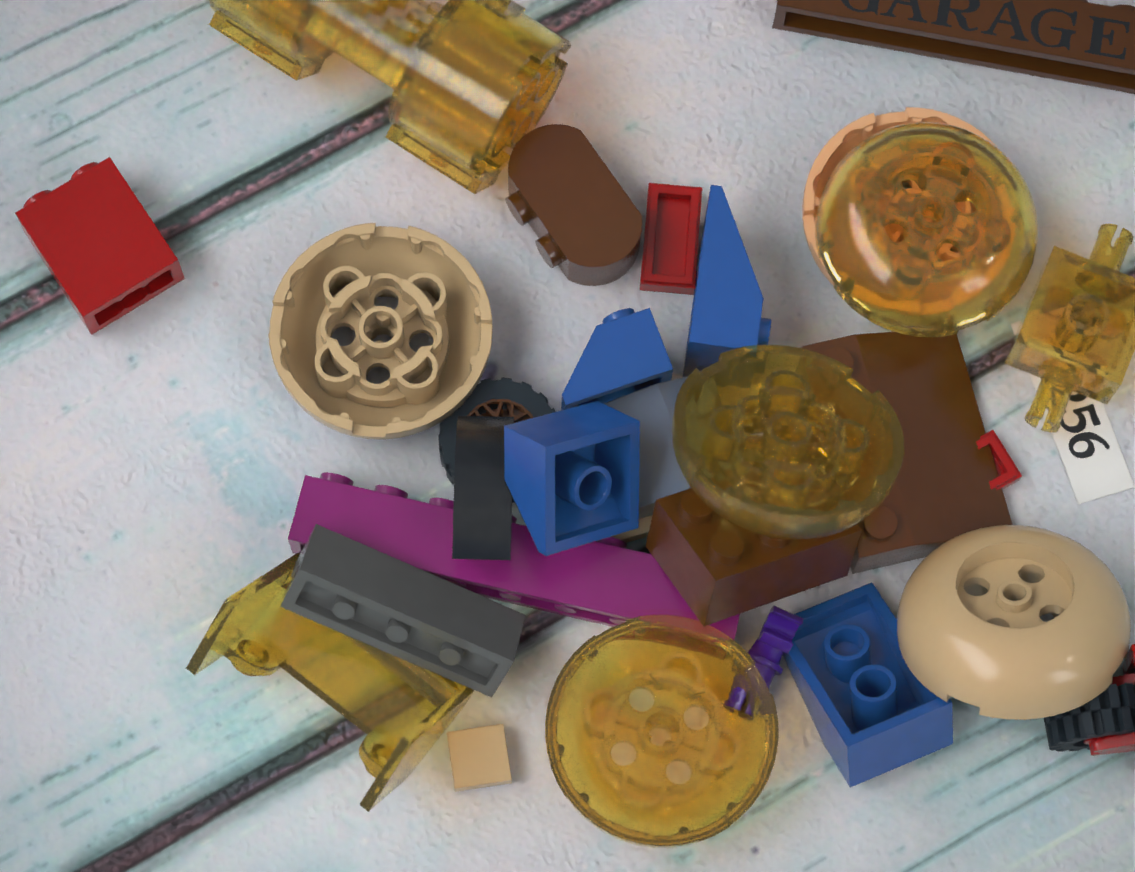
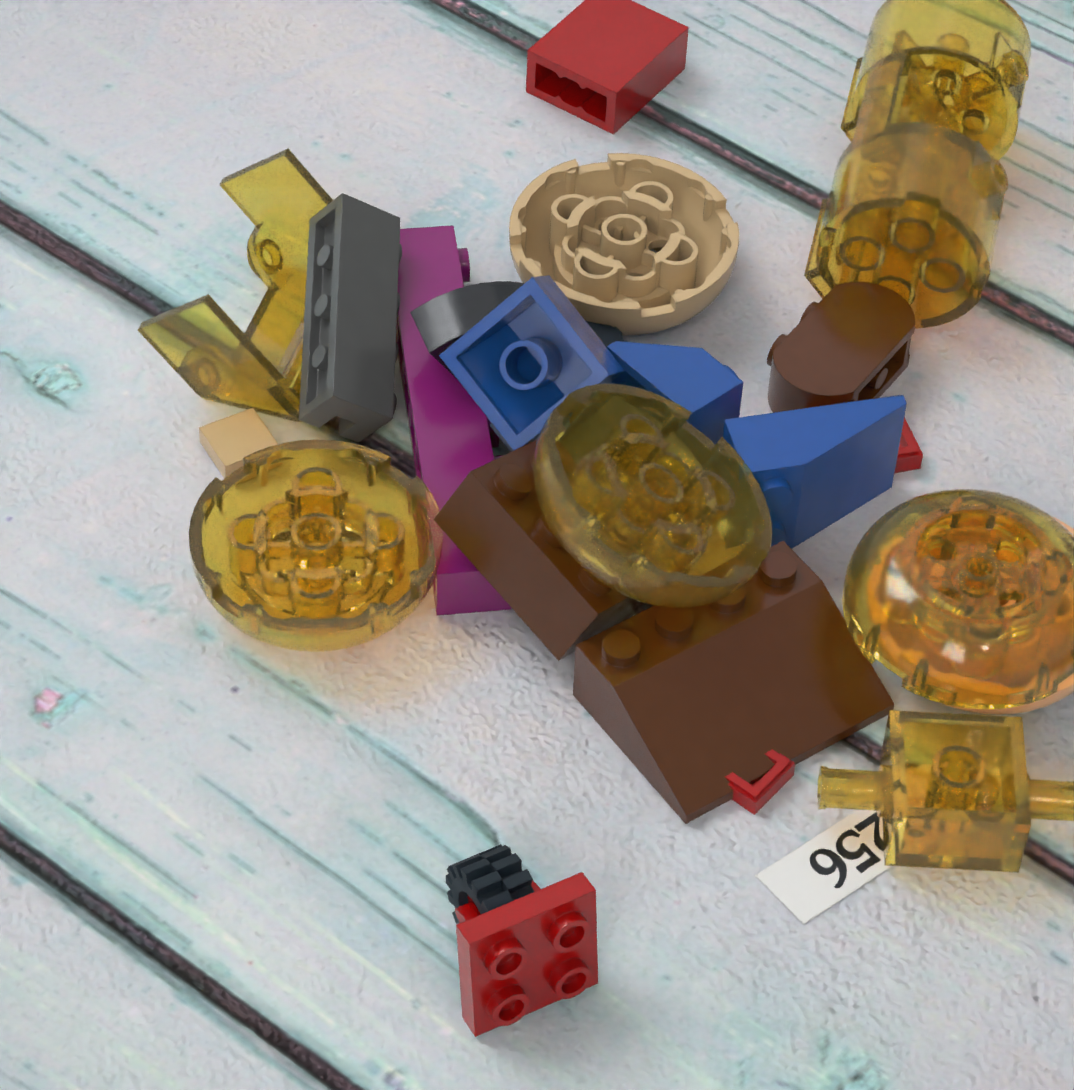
camera: 70 degrees right, 25 degrees down
(767, 651) = (436, 625): dark purple piece -> none
(861, 689) = (443, 715): blue slope -> none
(977, 629) = (571, 789): tan brick -> none

